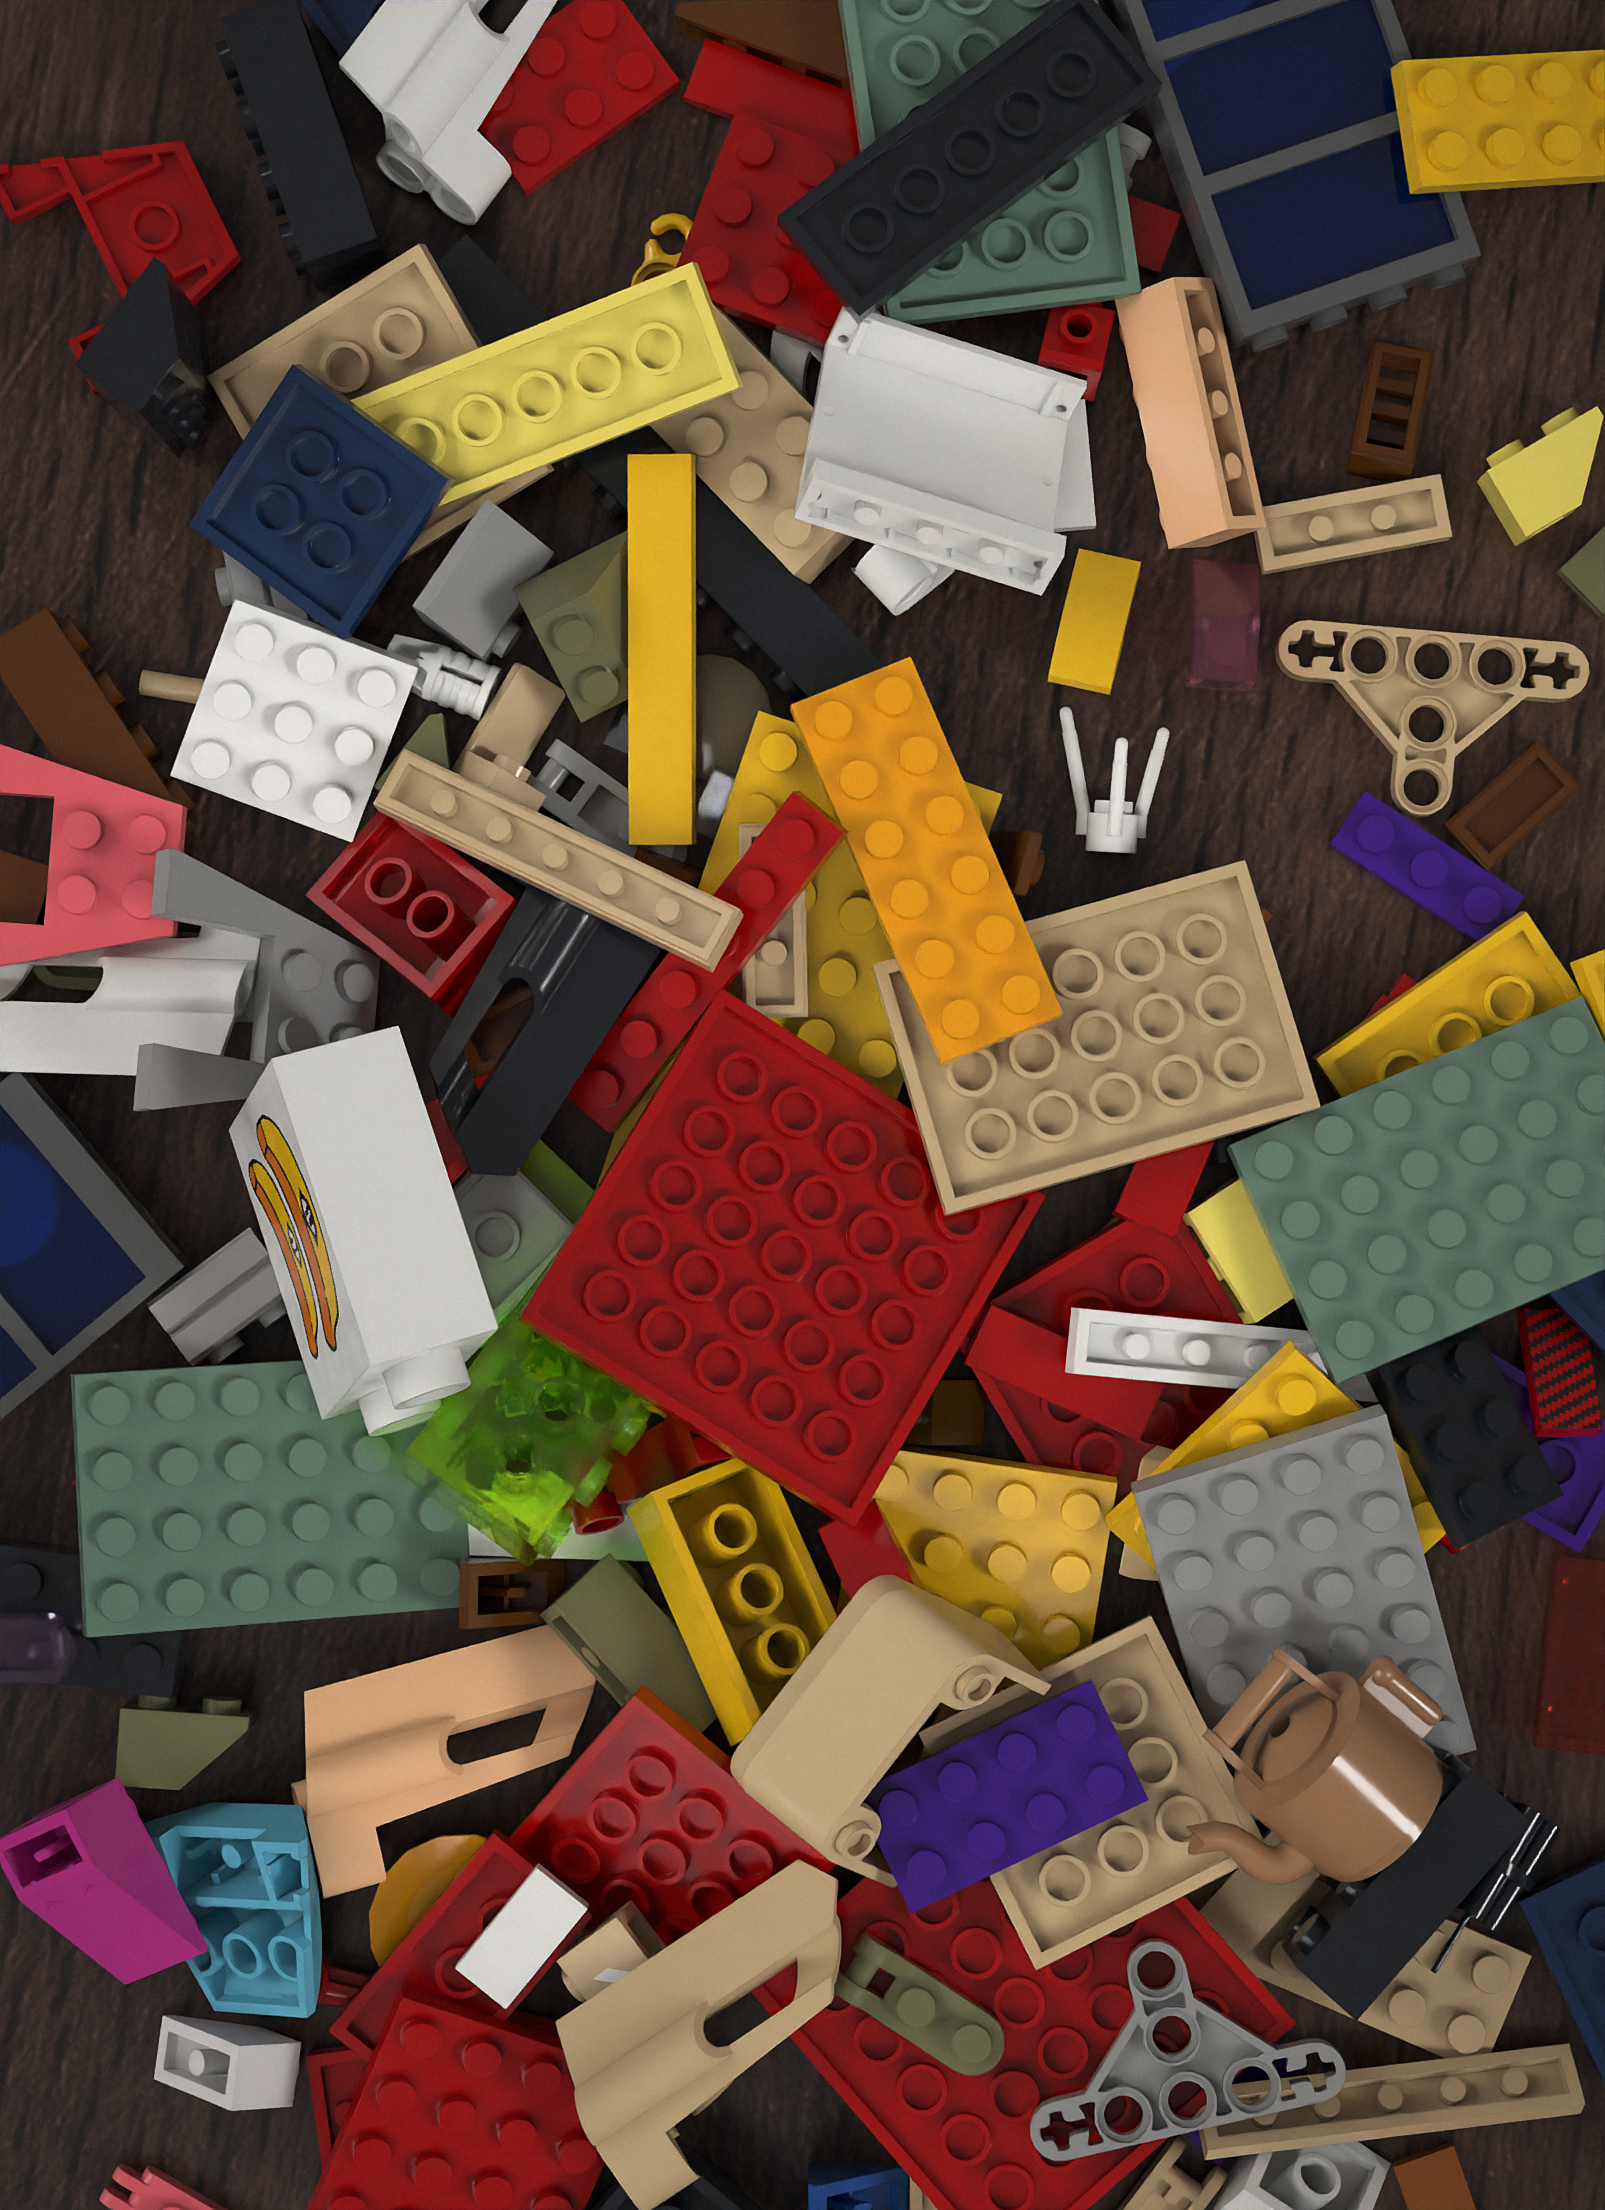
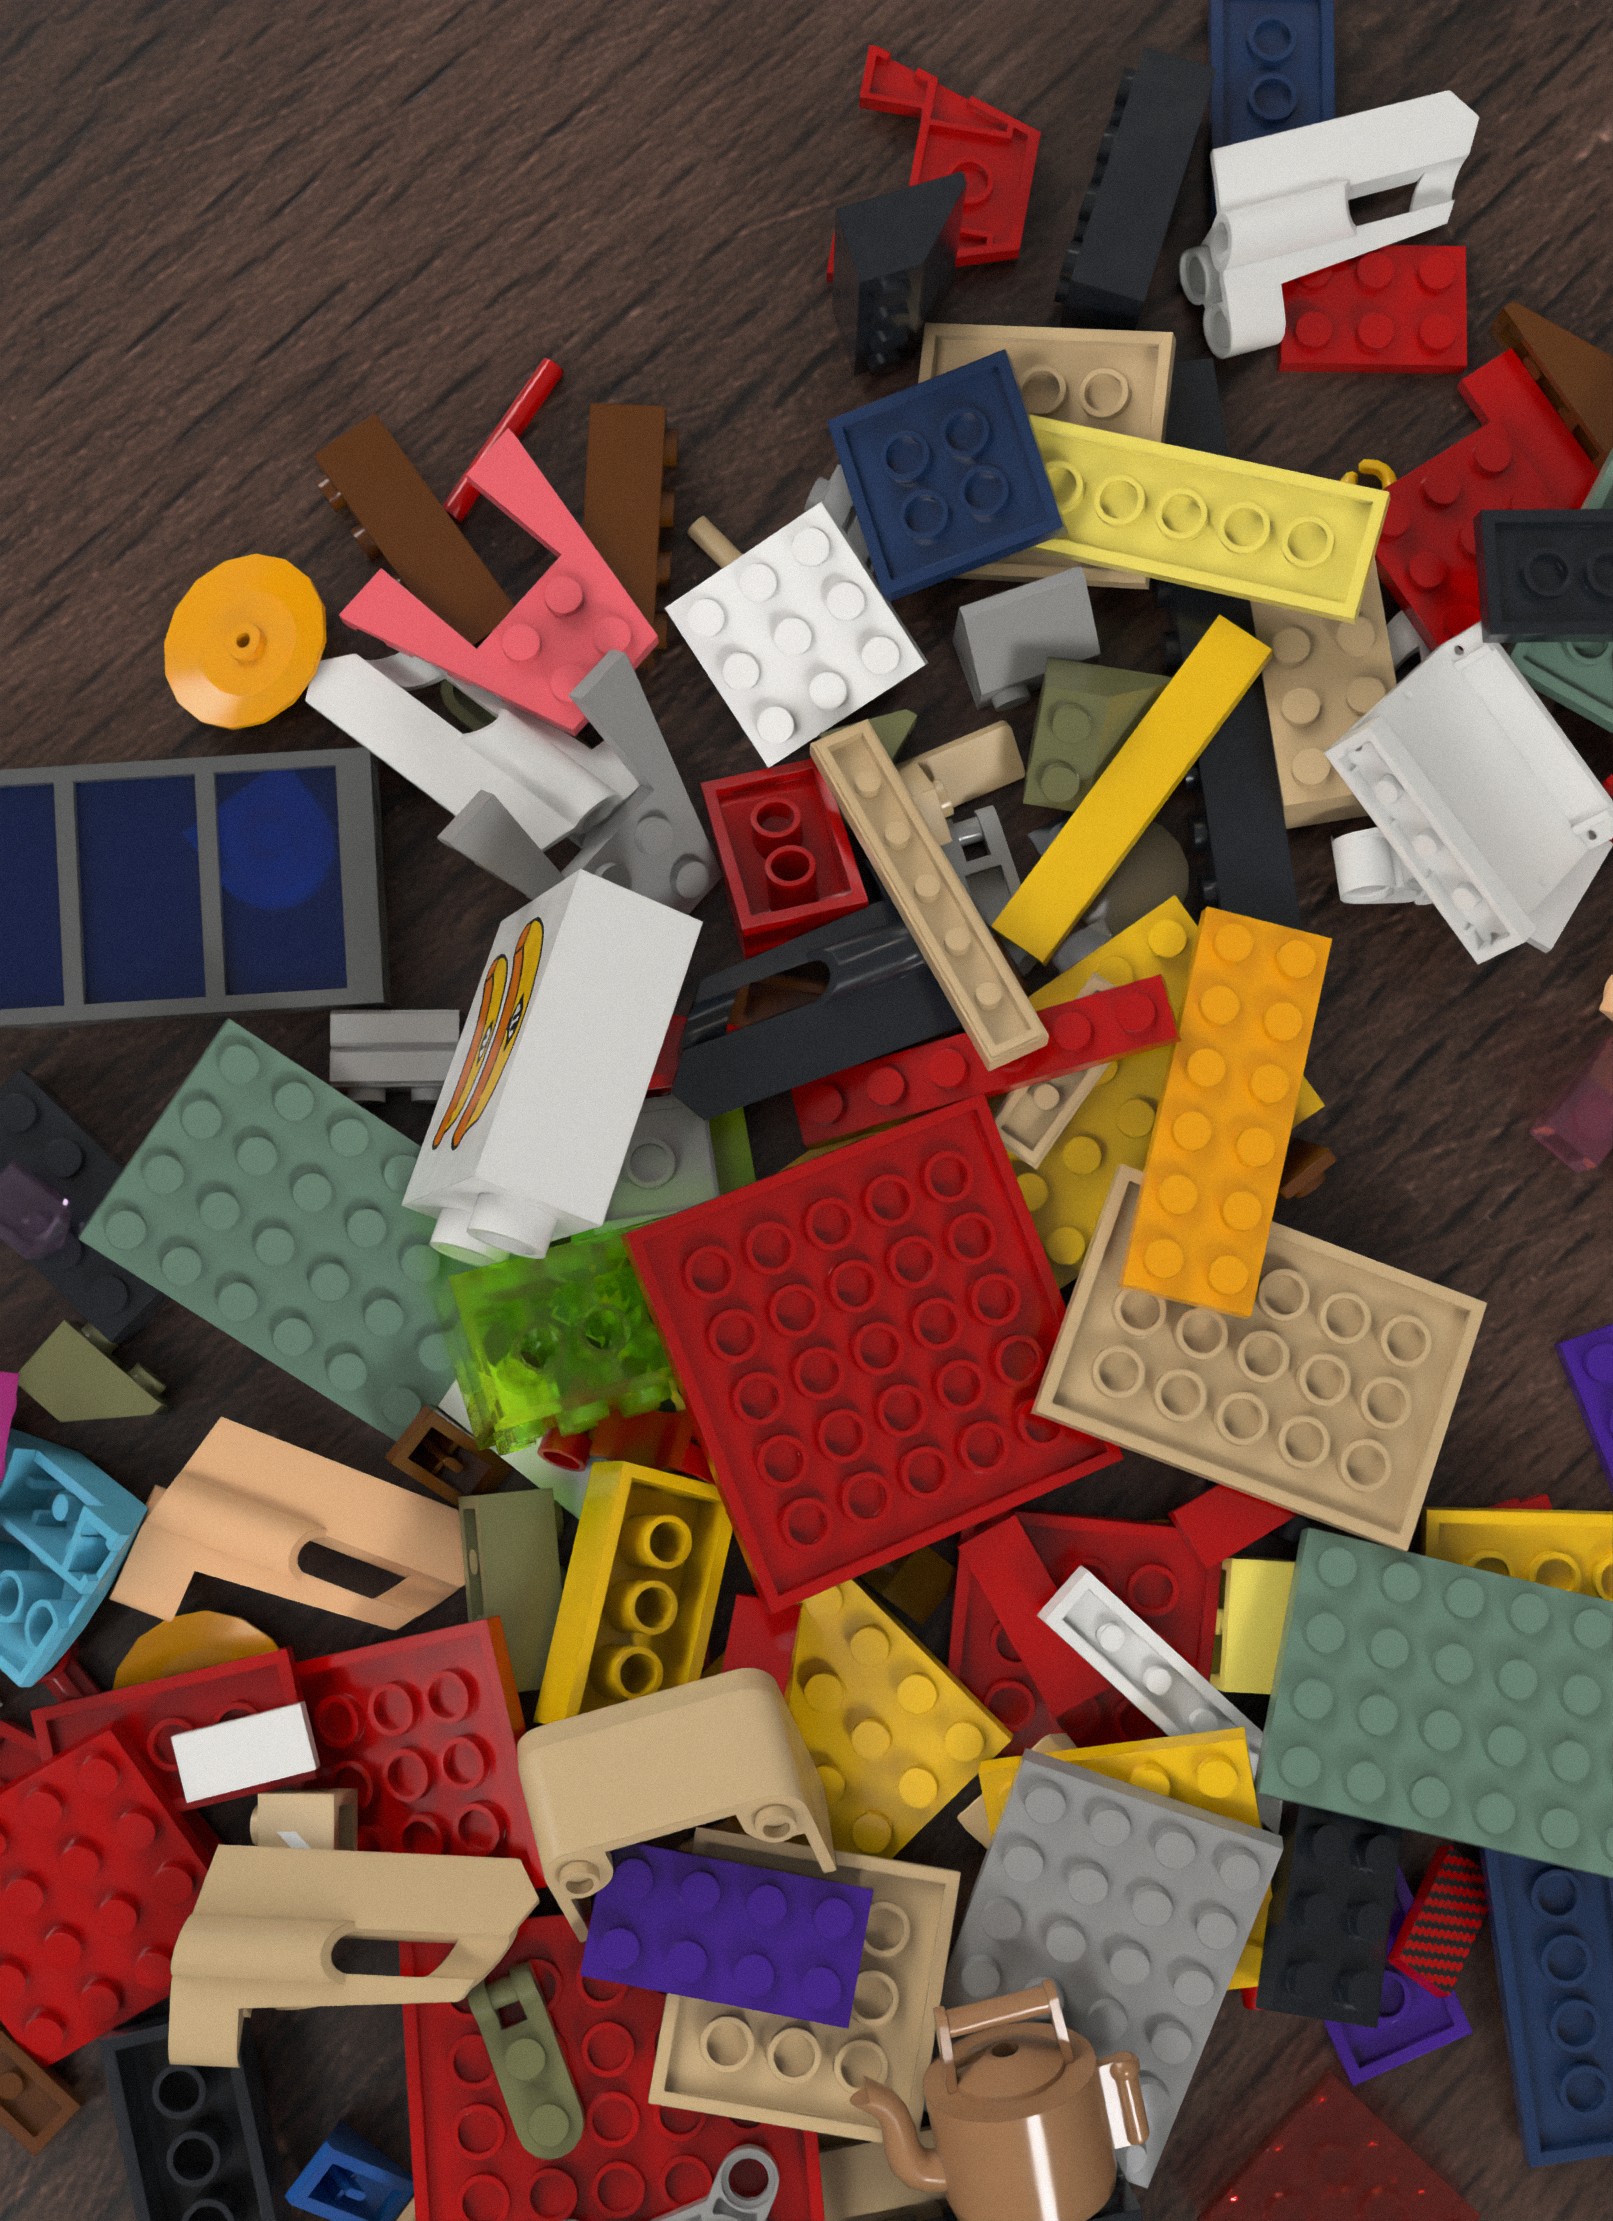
camera: 35 degrees right, 5 degrees down
(449, 676) = (943, 694): white hinge -> none
(1094, 621) = (1494, 1025): yellow slope -> none
(1112, 824) = (1392, 1198): white plant -> none

